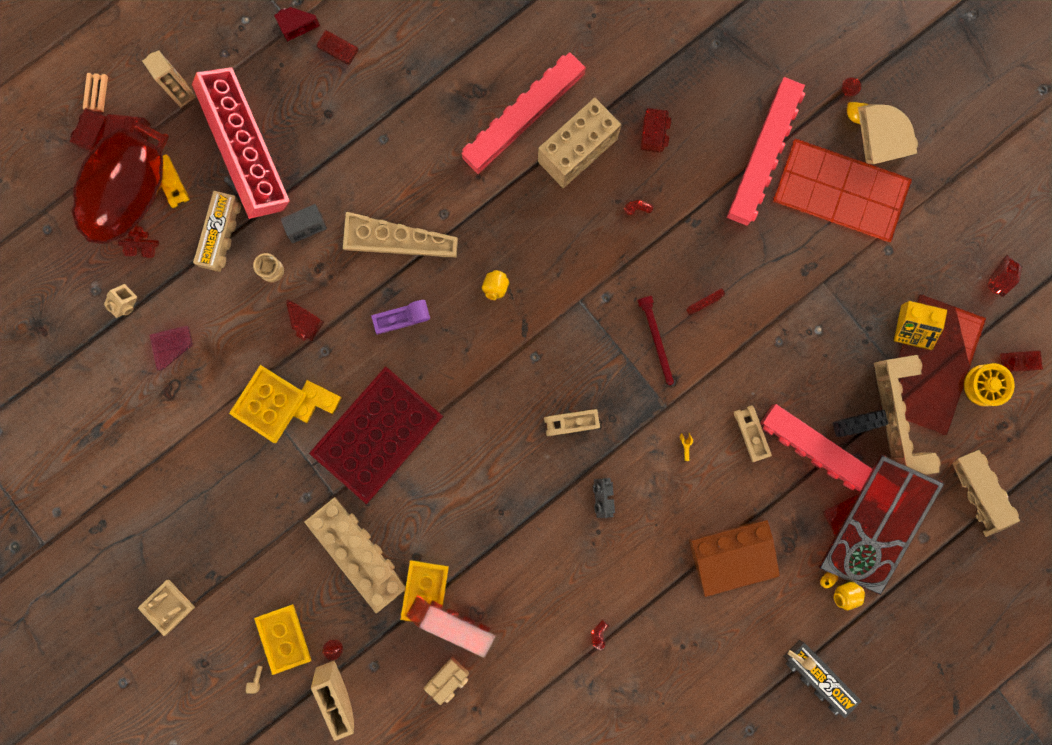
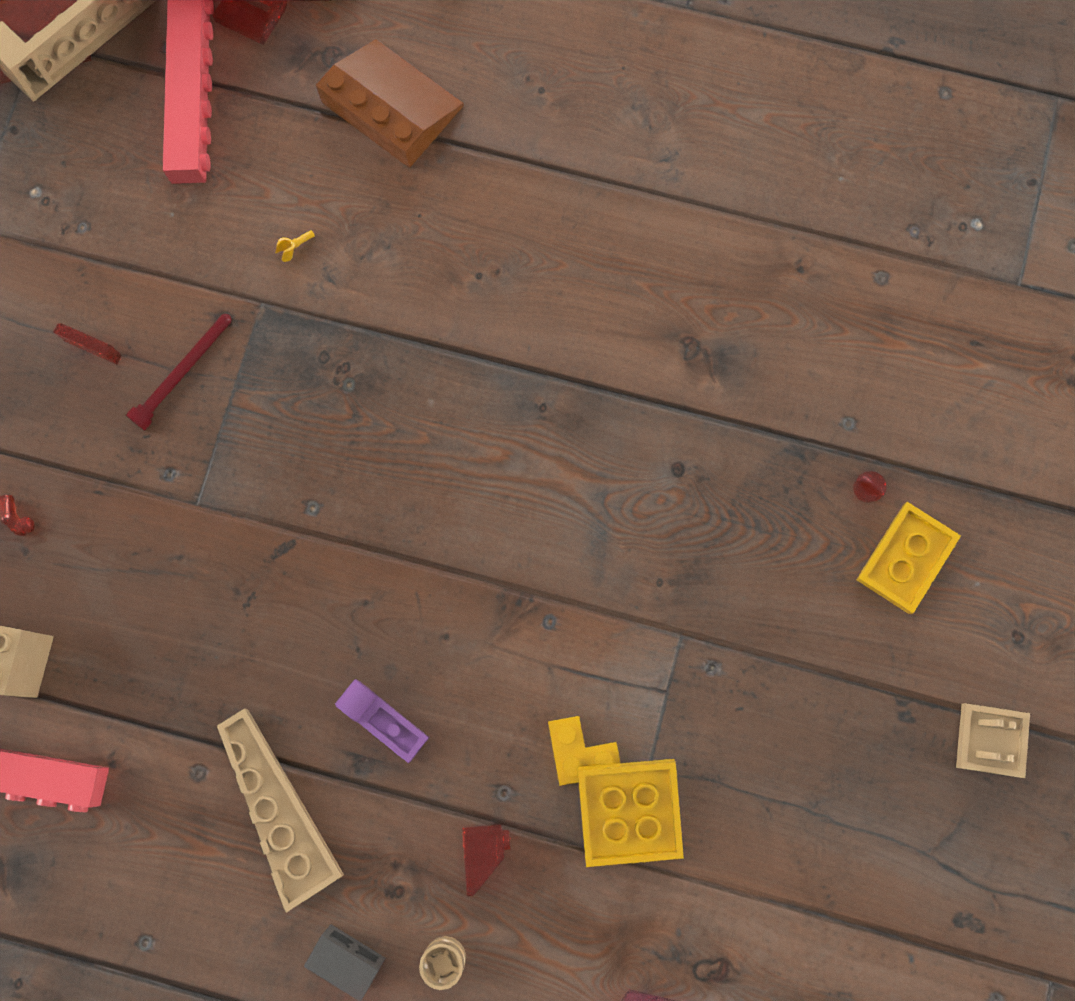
camera: 125 degrees left, 5 degrees down
(253, 687) = (995, 550): tan hand -> none
(333, 700) = (928, 433): tan brick -> none
(356, 554) = (732, 547): tan plate -> none
(376, 435) = (562, 635): dark red plate -> none
(426, 581) = (712, 424): yellow plate -> none
(446, 681) = (795, 320): tan brick -> none
(450, 626) = (728, 360): clear red wedge -> none
(495, 284) = (248, 626): yellow head -> none
(572, 422) = (363, 398): tan plate -> none
(597, 636) = (604, 188): clear red arm -> none
(603, 507) = (440, 290): dark grey hinge -> none
(752, 434) = (222, 178): tan plate -> none
(860, 423) = (117, 57): black tyre -> none

